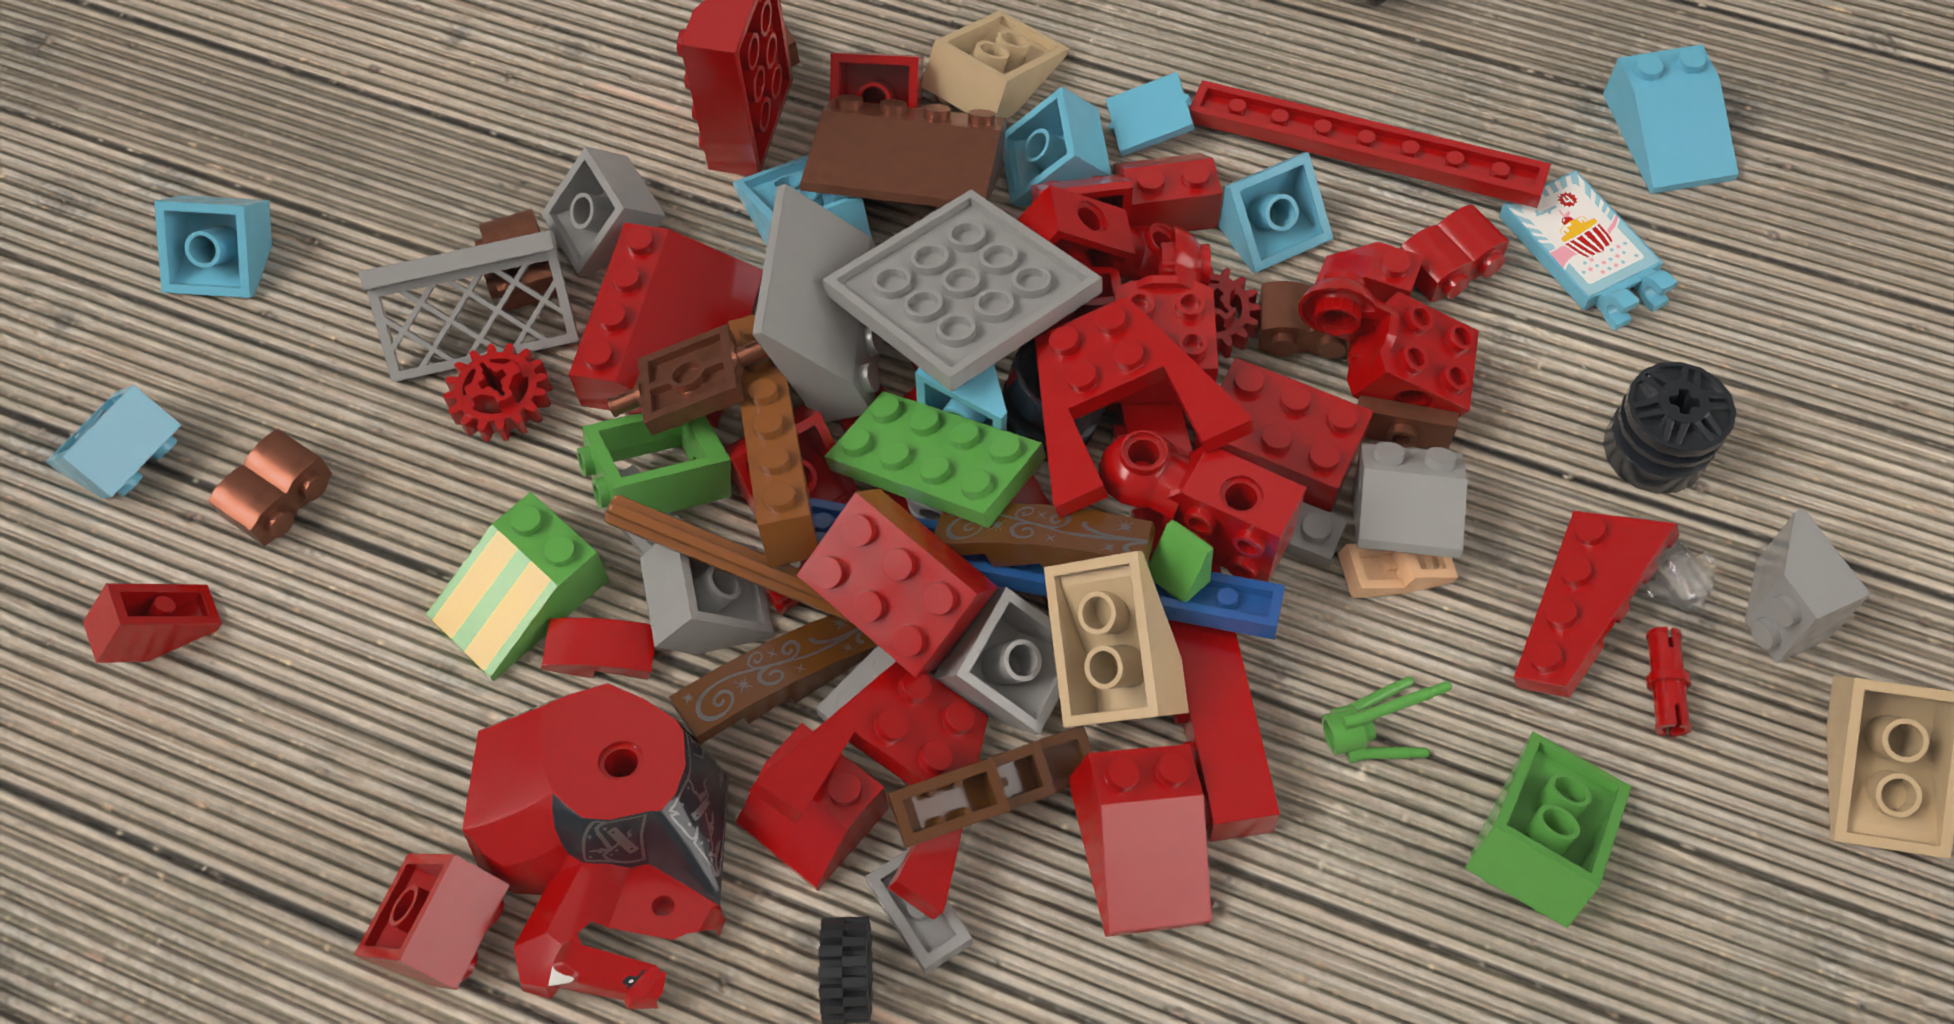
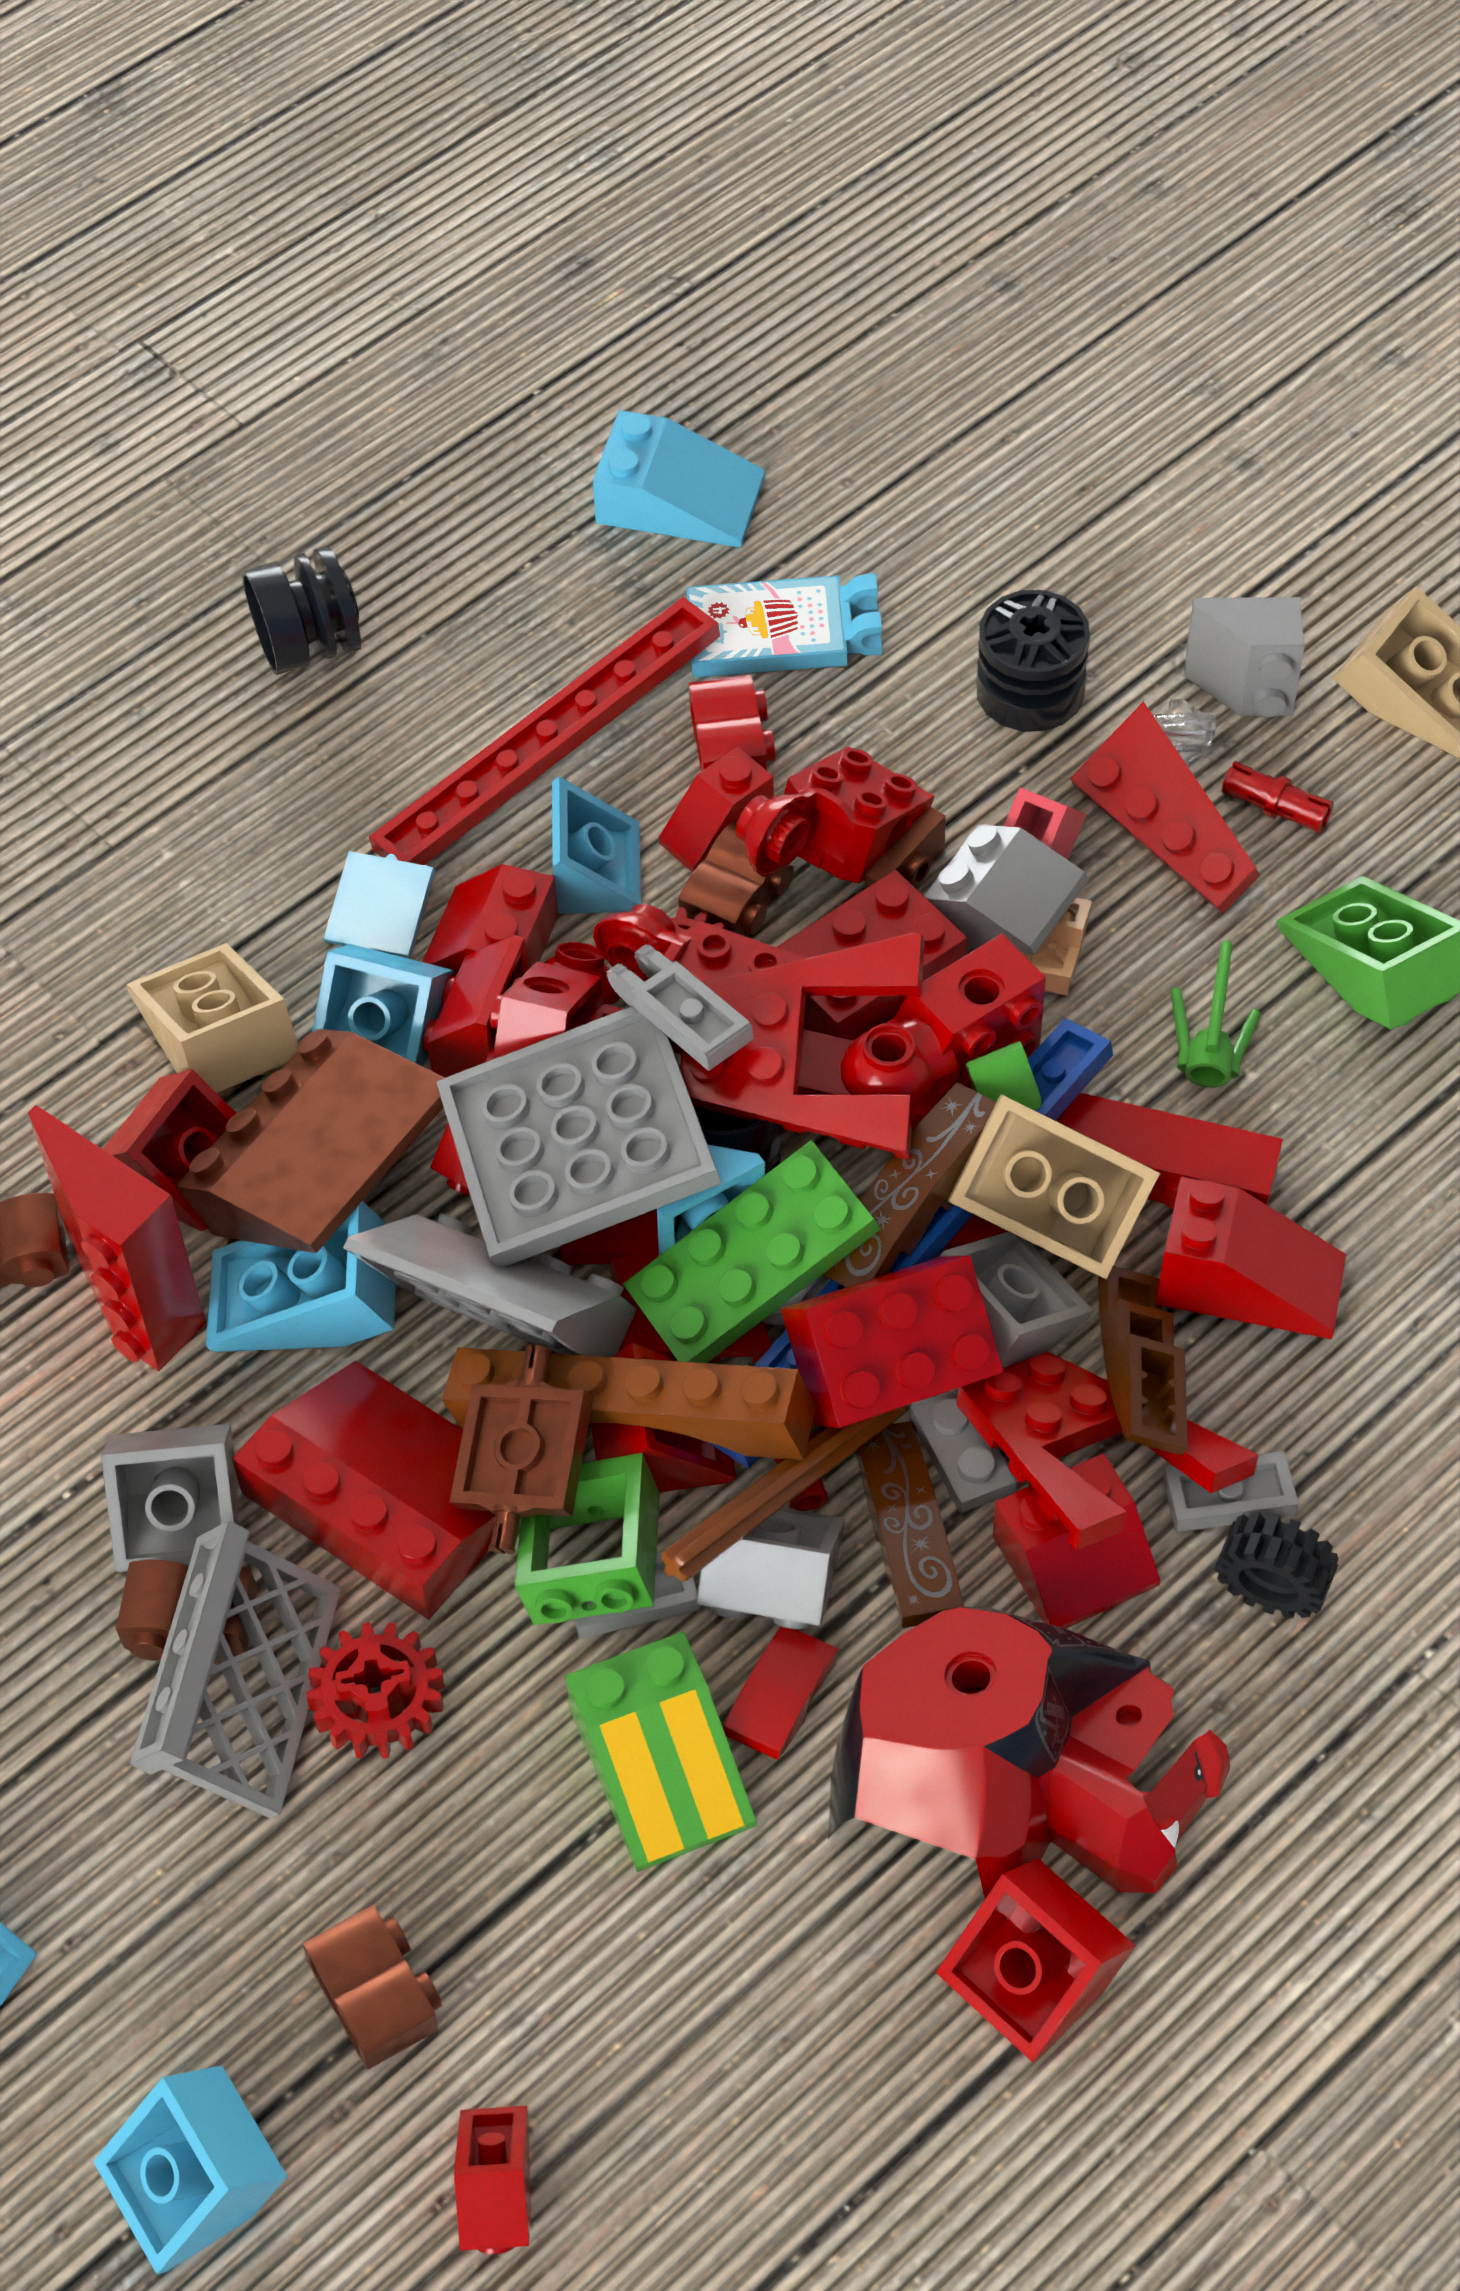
camera: 65 degrees left, 5 degrees down
(1087, 294) = (682, 1007): none -> light grey hinge
(1500, 504) = (1046, 820): none -> coral brick

